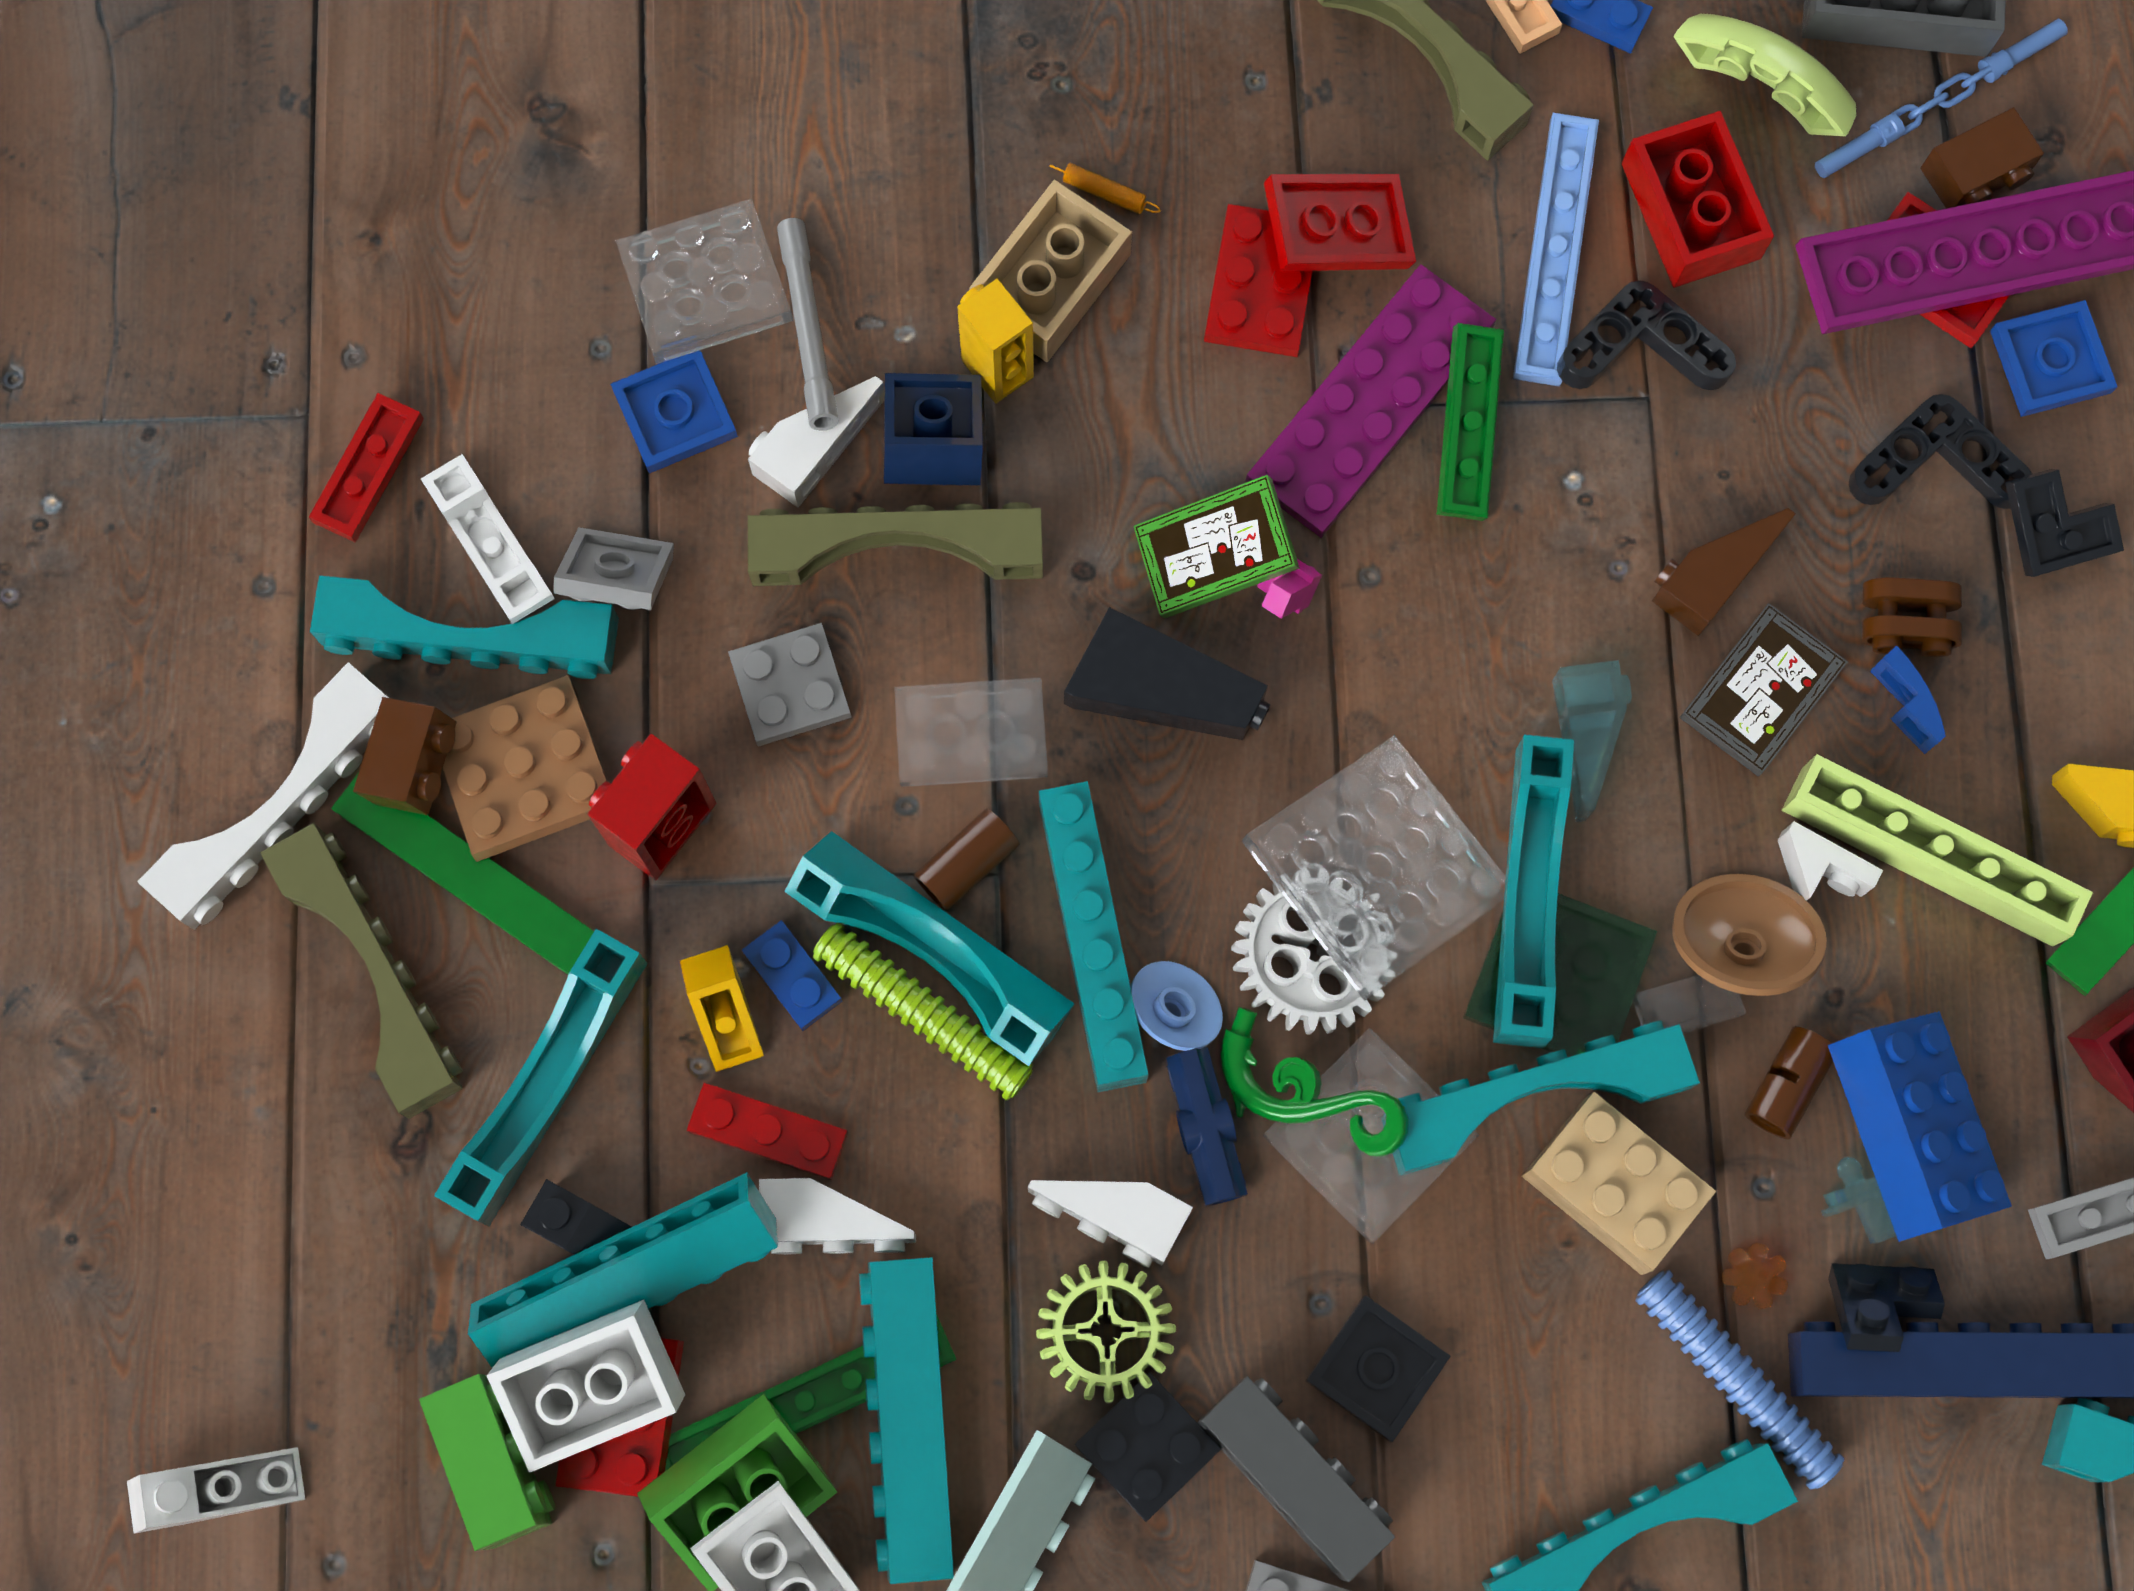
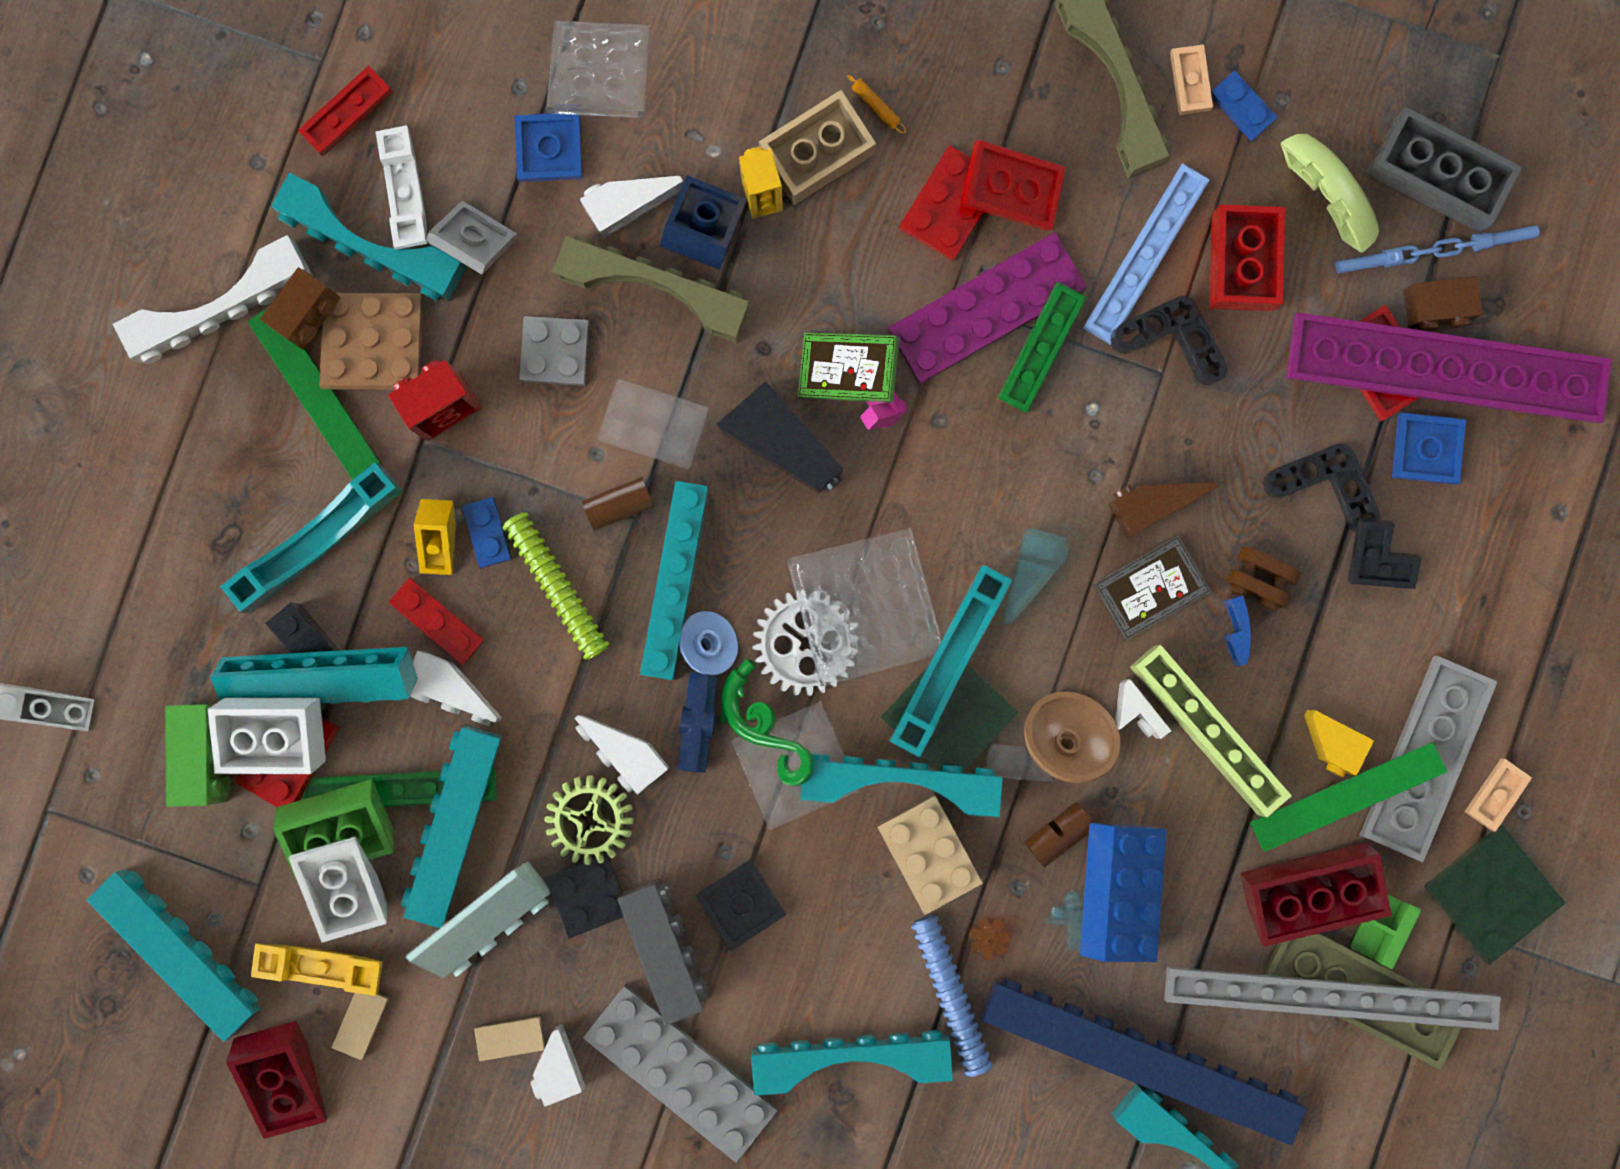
camera: 20 degrees right, 10 degrees up
(409, 1056) = (240, 494): olive arch -> none
(817, 387) = (639, 170): light grey piece -> none
(855, 891) = (541, 495): teal arch -> none
(1875, 1296) = (1053, 979): black plate -> none

